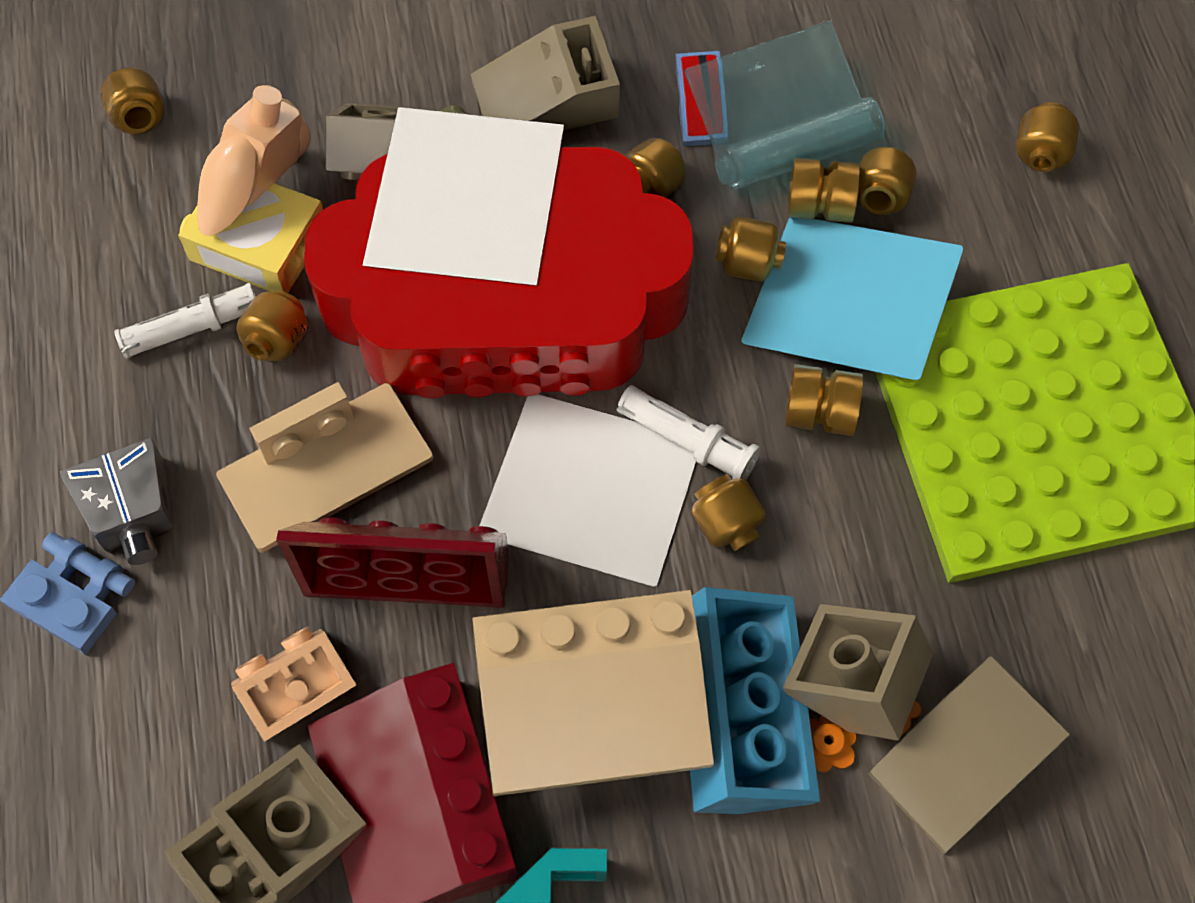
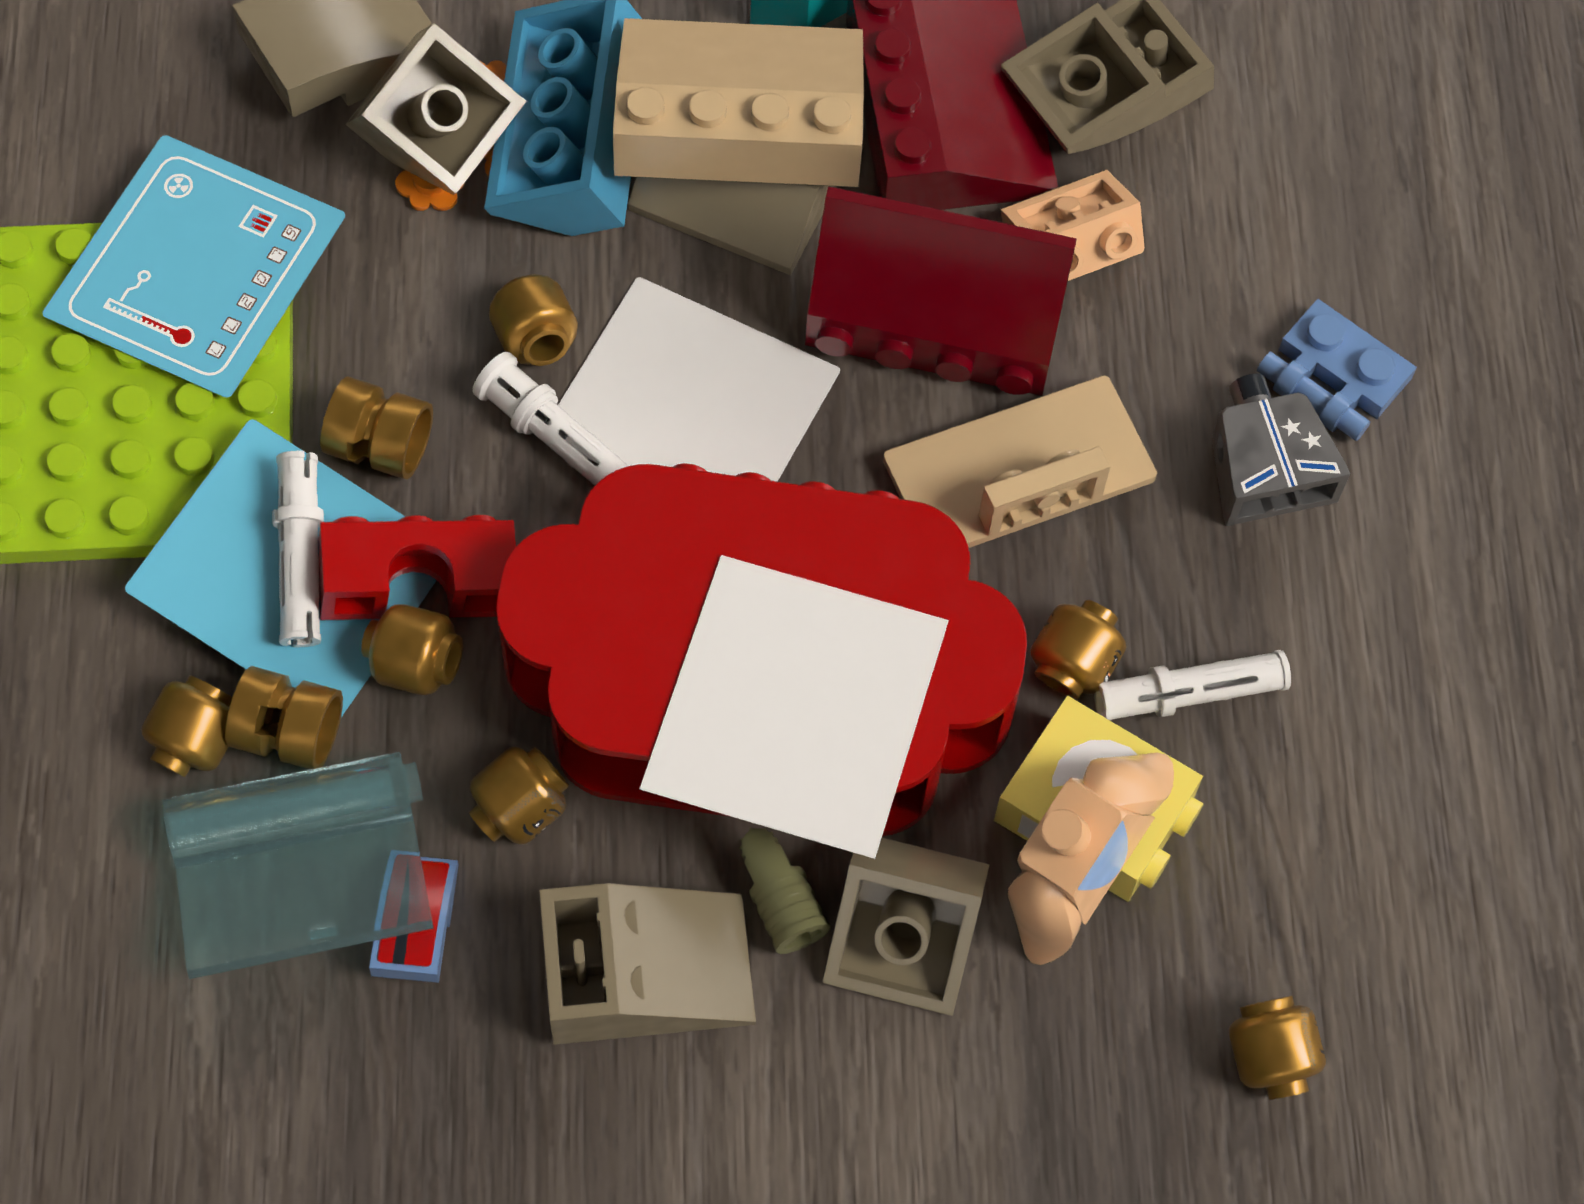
camera: 175 degrees left, 0 degrees up
(728, 317) = (364, 557): none -> red arch
(856, 305) = (298, 526): none -> white pin
(1010, 512) = (194, 265): none -> medium azure sticker

